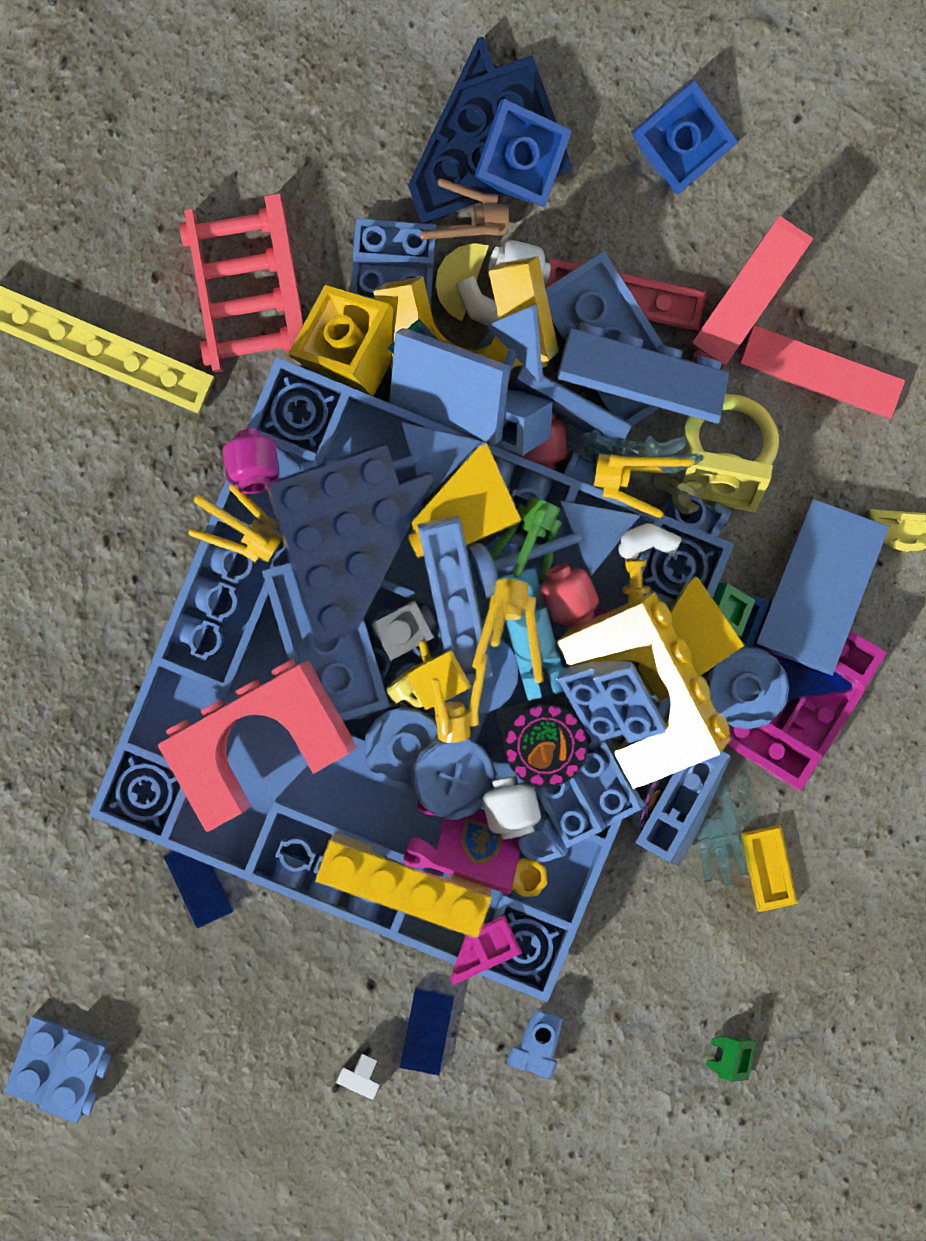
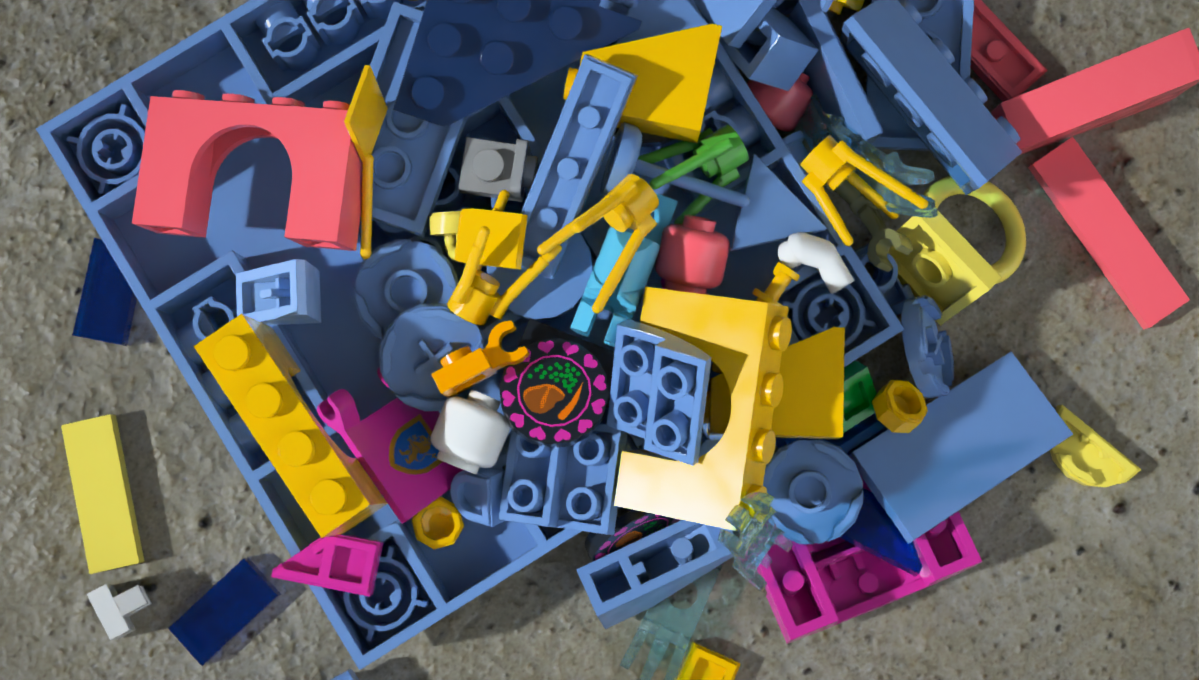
camera: 35 degrees right, 5 degrees down
(292, 1015) = (102, 493): none -> light yellow tile
(311, 673) = (364, 124): none -> yellow piece
(326, 811) = (280, 293): none -> light blue slope
(481, 771) = (467, 368): none -> light orange plate
(734, 747) = (755, 537): none -> clear light blue piece
(756, 538) = (926, 349): none -> medium blue tile
(766, 592) = (899, 406): none -> yellow tile

